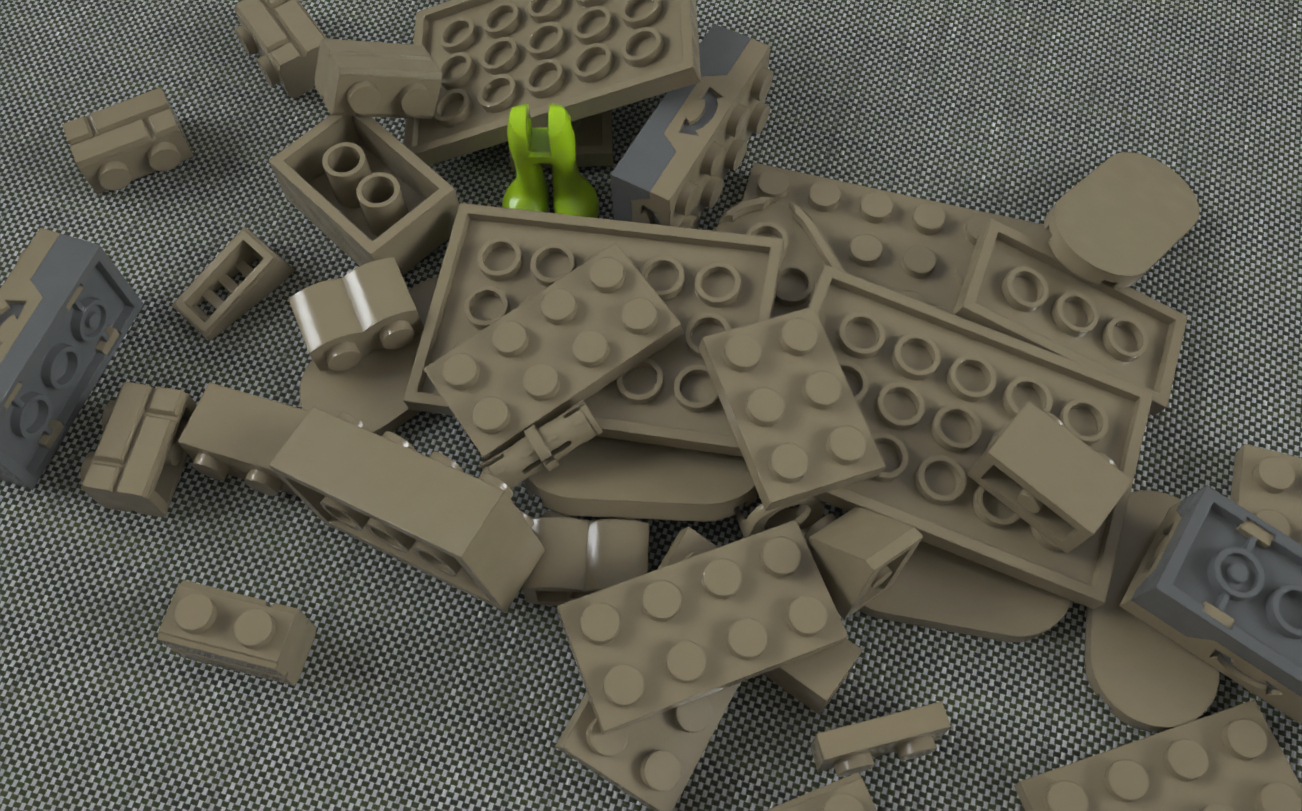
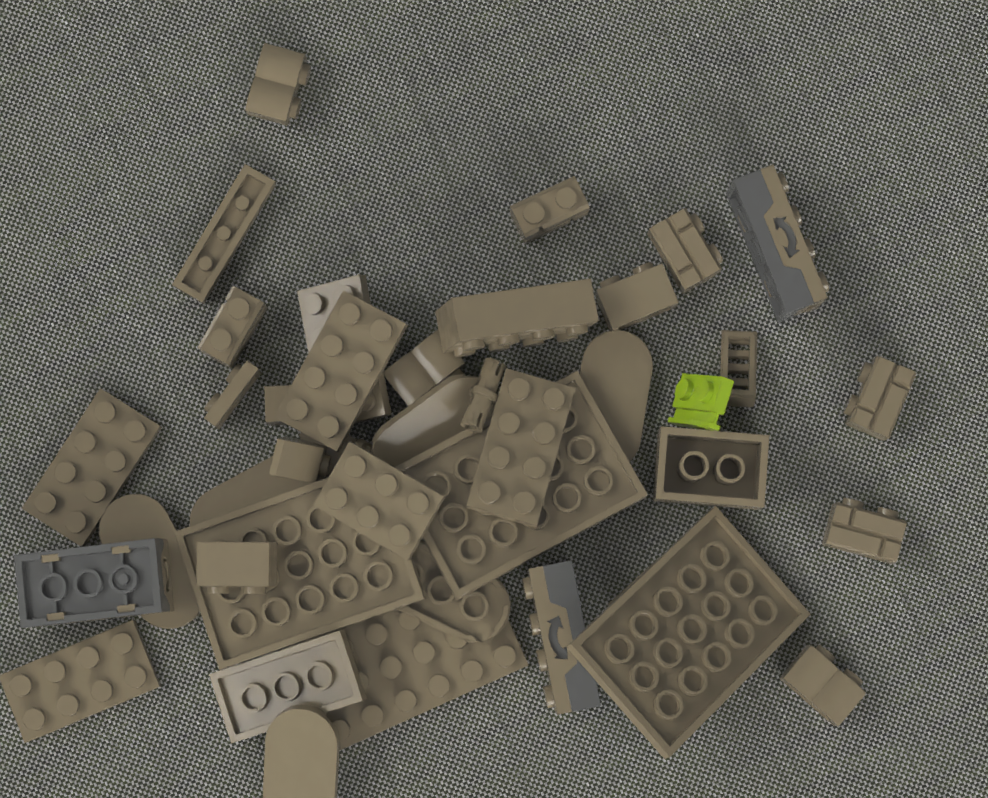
camera: 135 degrees right, 20 degrees up
(297, 249) = (700, 401): none -> lime plate
(356, 315) = (643, 395): dark tan brick -> none
(377, 79) = (755, 525): dark tan brick -> none
(548, 146) = (615, 562): lime piece -> none

